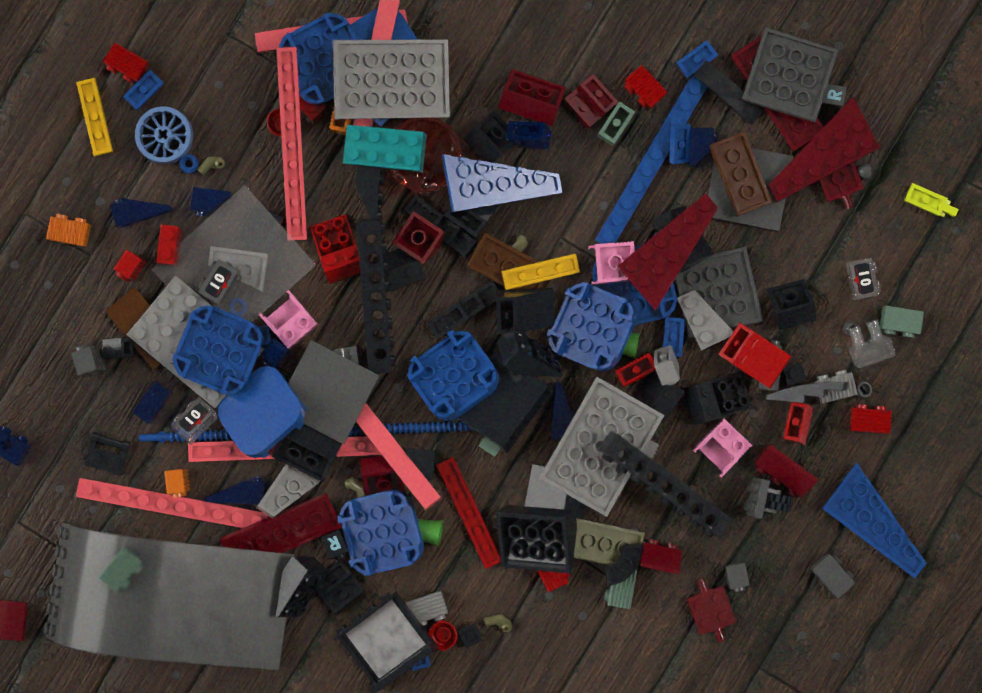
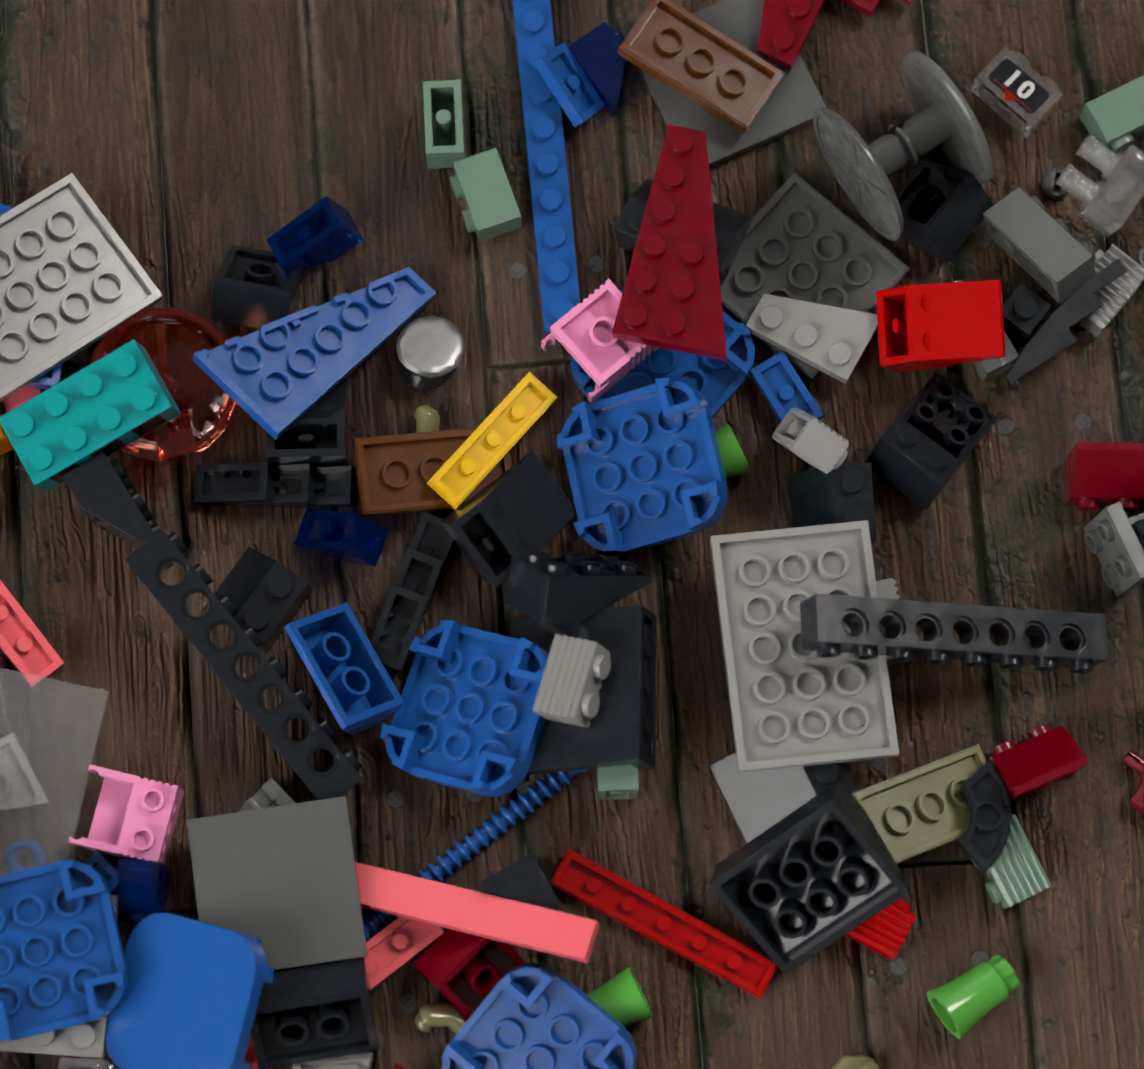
camera: 35 degrees left, 10 degrees down
(336, 248) = (127, 642): red slope -> none
(415, 323) = (345, 668): none -> blue slope
(419, 238) = (252, 523): dark red slope -> none
(452, 267) = (342, 536): none -> clear blue slope
(499, 396) = (572, 681): none -> light grey brick
(531, 97) = (277, 179): dark red slope -> none
(542, 215) = (429, 351): none -> flat silver piece
(561, 413) = (696, 645): clear blue slope -> none
(569, 628) = (973, 995): none -> bright green plant
(590, 101) = (377, 122): dark red slope -> none
(612, 165) = (486, 194): none -> sand green brick
(635, 370) = (765, 486): red brick -> none
(645, 87) = (449, 39): red brick -> none
(723, 446) = (999, 508): bright pink piece -> none
(795, 271) = (940, 121): none -> dark grey piece
(798, 423) = (1090, 385): red brick -> none
(822, 351) = (1040, 244): none -> dark grey brick

